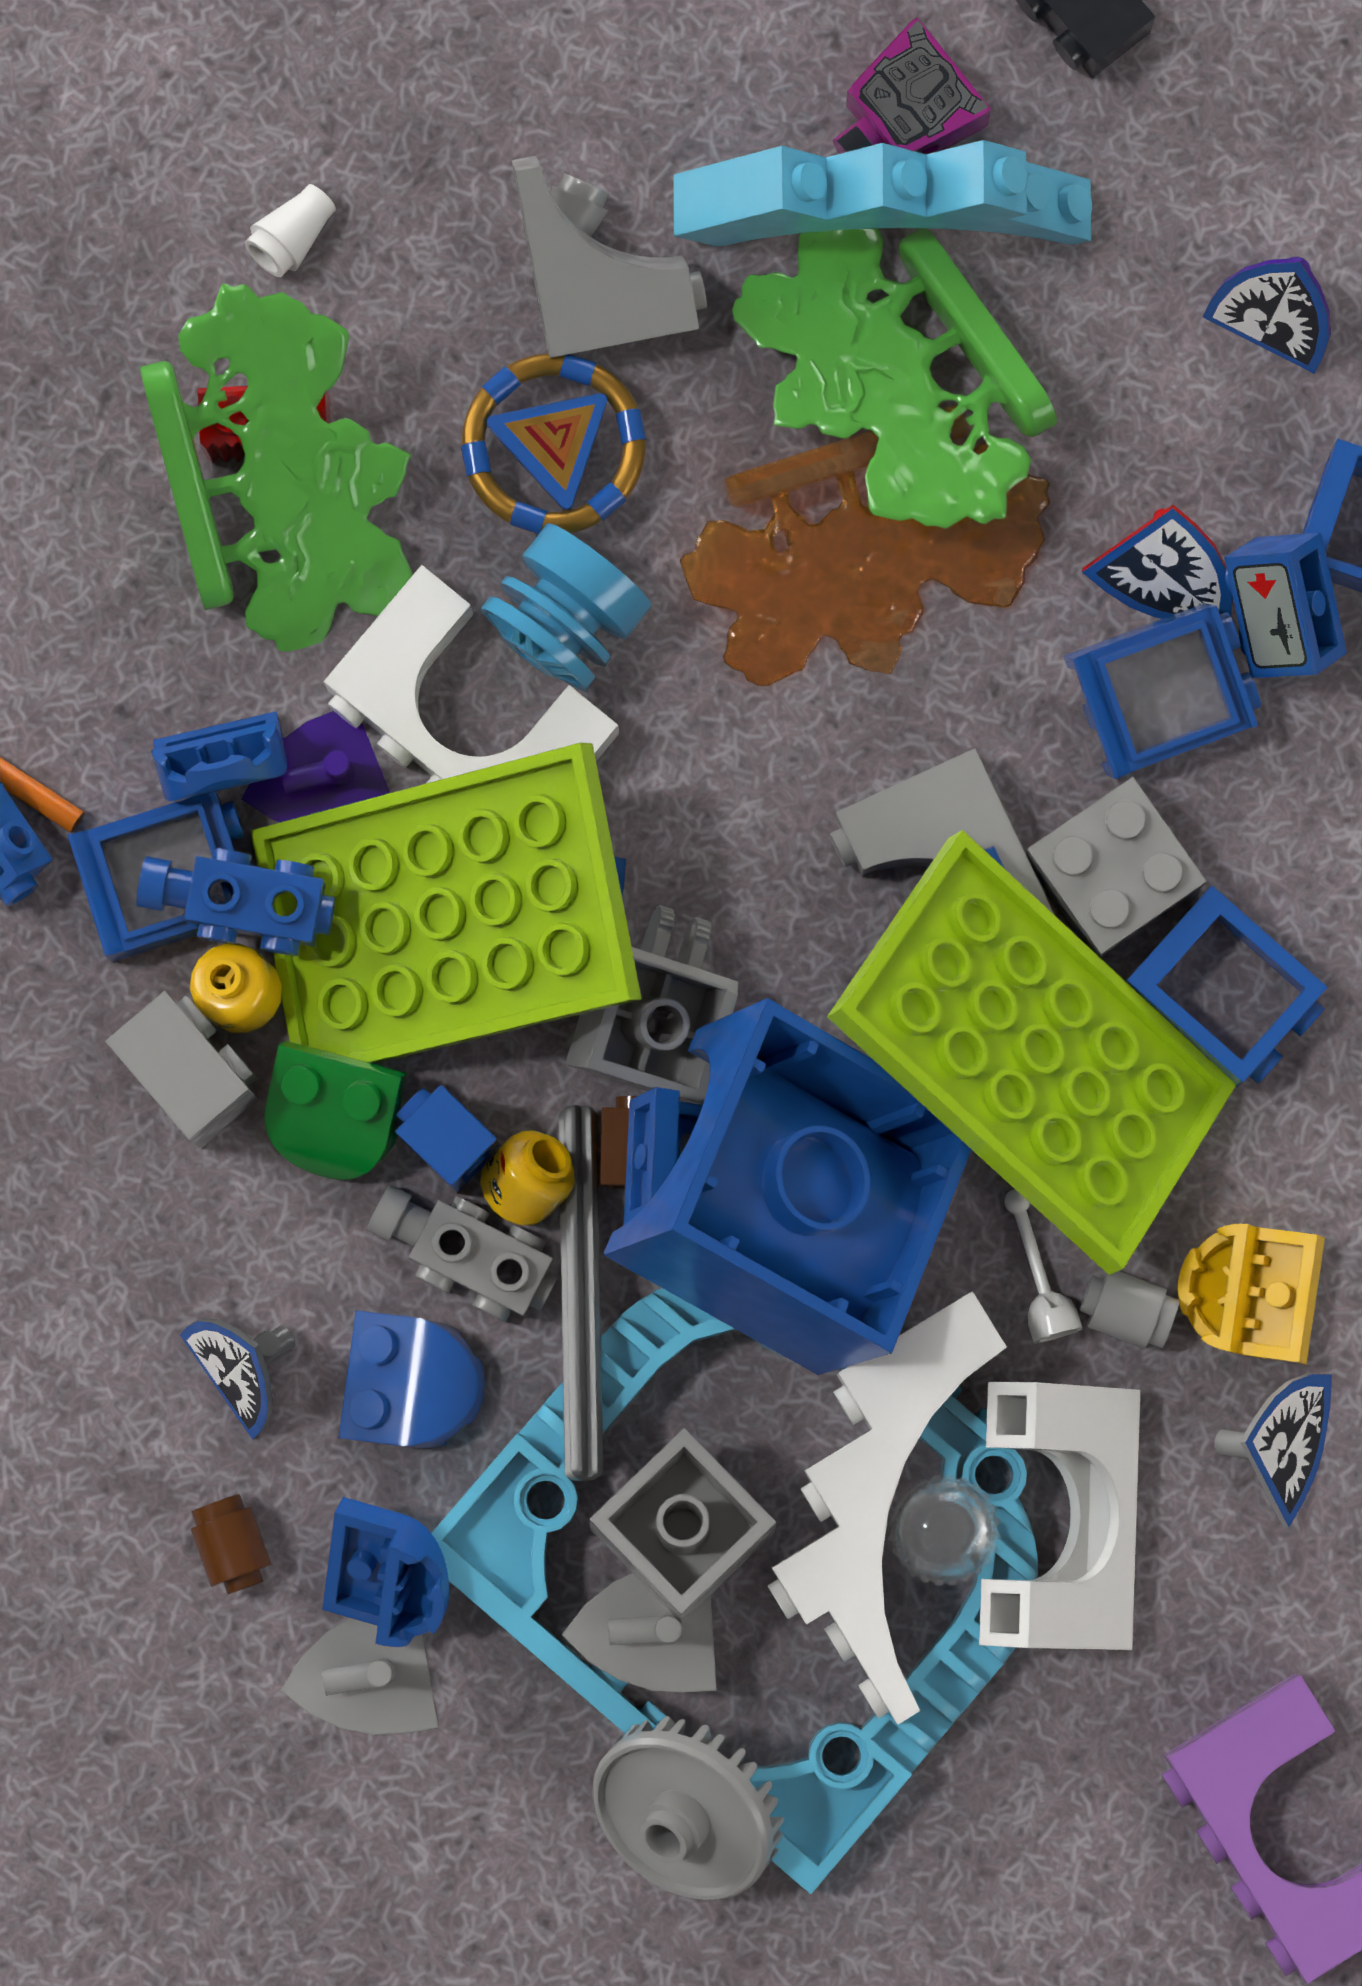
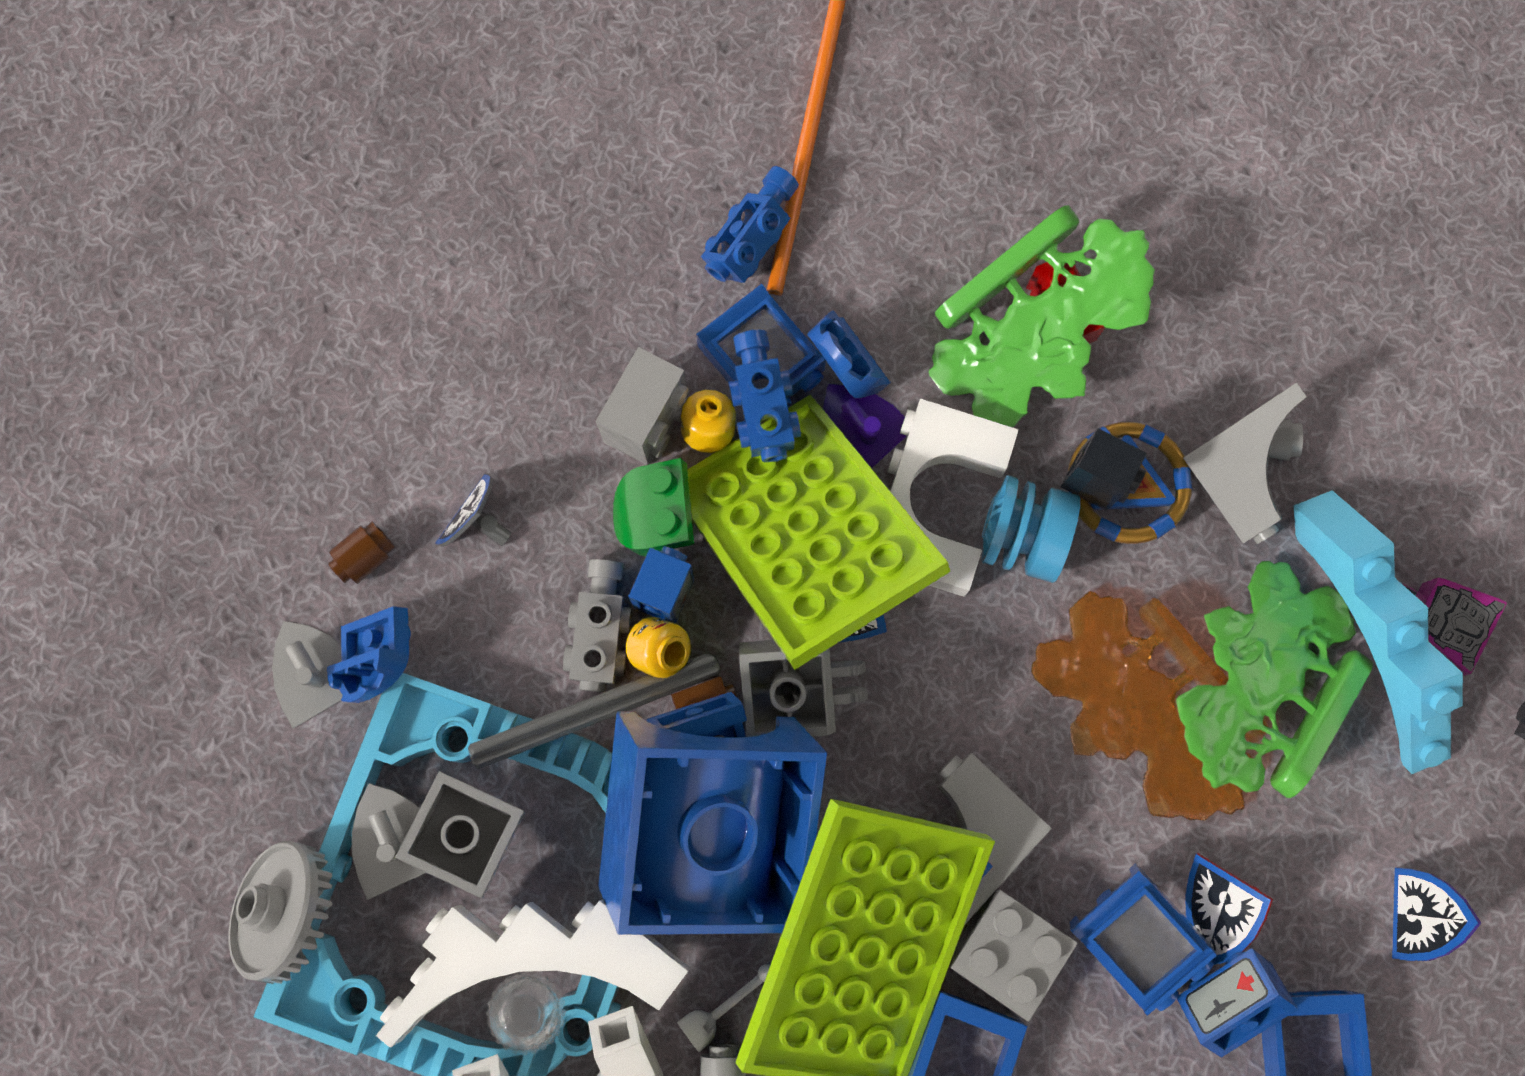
camera: 65 degrees right, 5 degrees down
(287, 233) = (1187, 275): white cone -> none
(409, 1382) = (503, 624): blue slope -> none
(532, 478) = (1105, 470): none -> black brick

